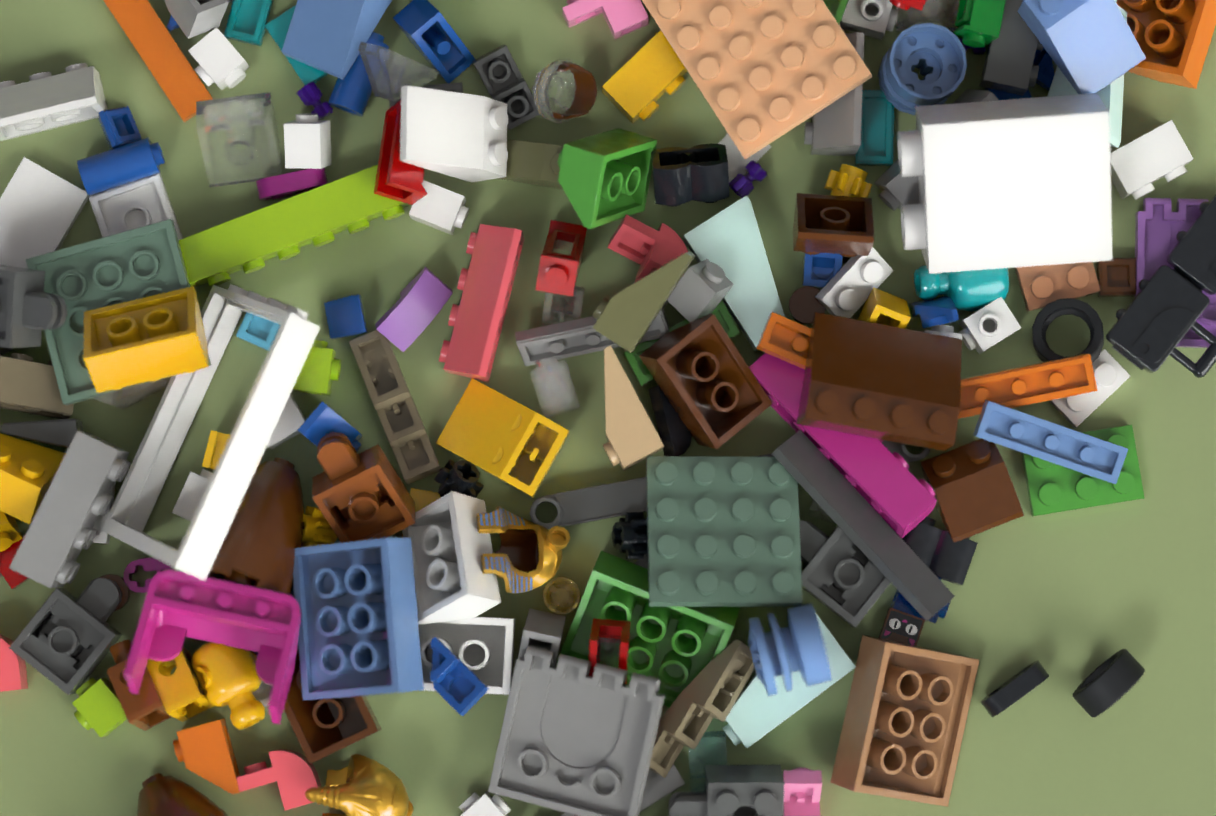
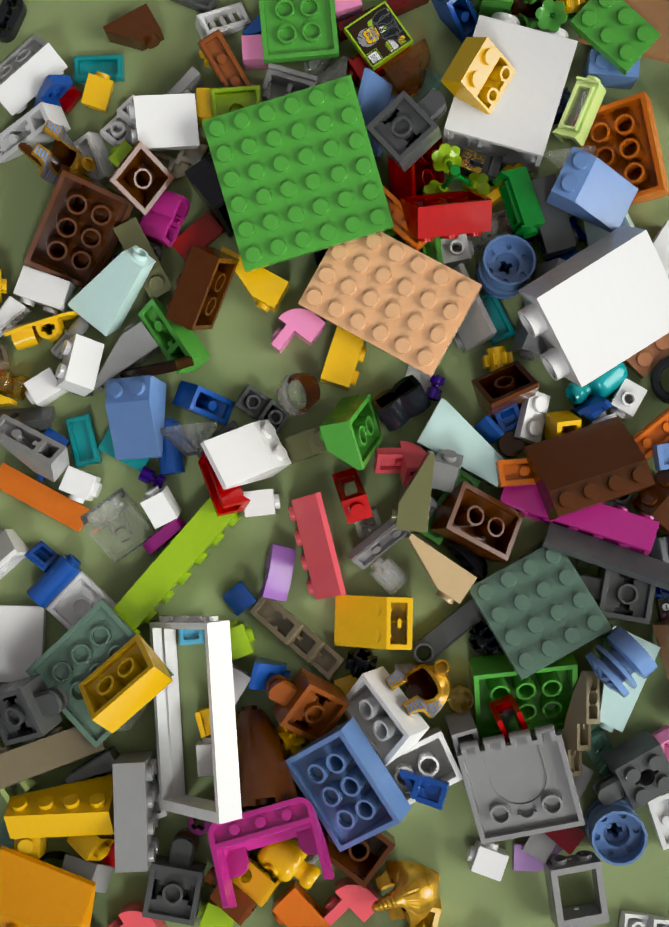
camera: 30 degrees left, 0 degrees up
(786, 271) = (488, 429): none -> blue slope

